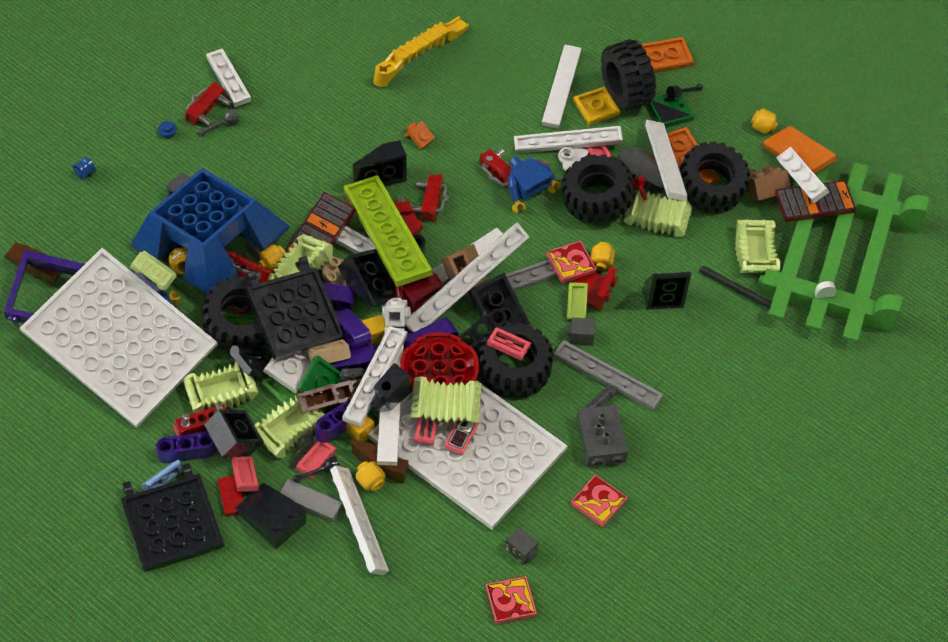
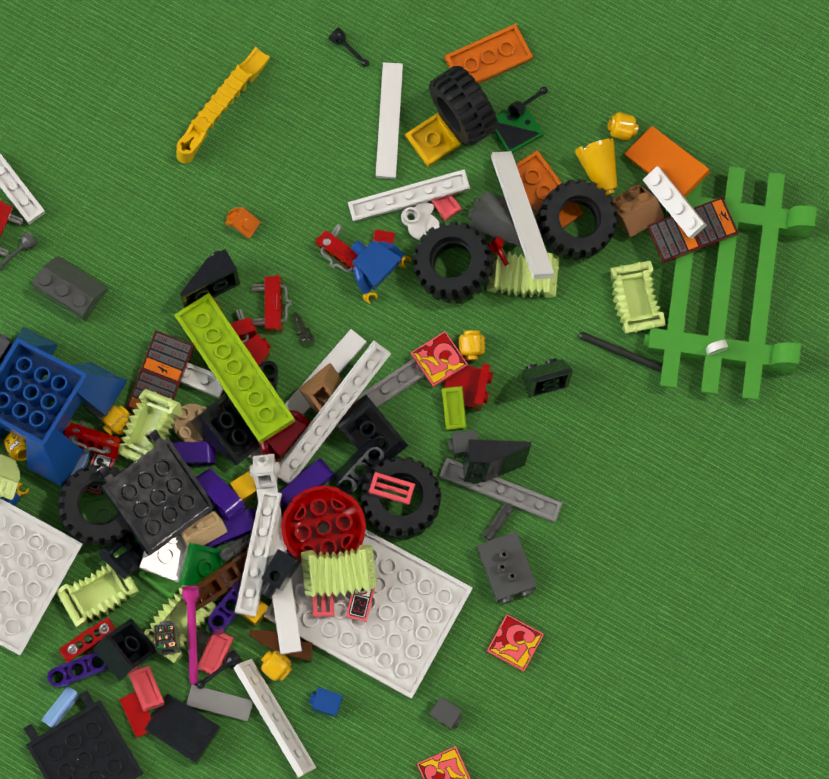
camera: 10 degrees left, 20 degrees up
(255, 156) = (69, 287): none -> dark grey slope
(274, 430) = (167, 638): none -> brick
(305, 393) = (190, 594): none -> dark pink piece
(410, 515) = (326, 702): none -> blue brick
(454, 224) = (306, 338): none -> clear smoke bar
(530, 21) = (338, 37): none -> black hinge
(607, 342) = (493, 458): none -> black slope
(740, 136) = (600, 163): none -> yellow cone

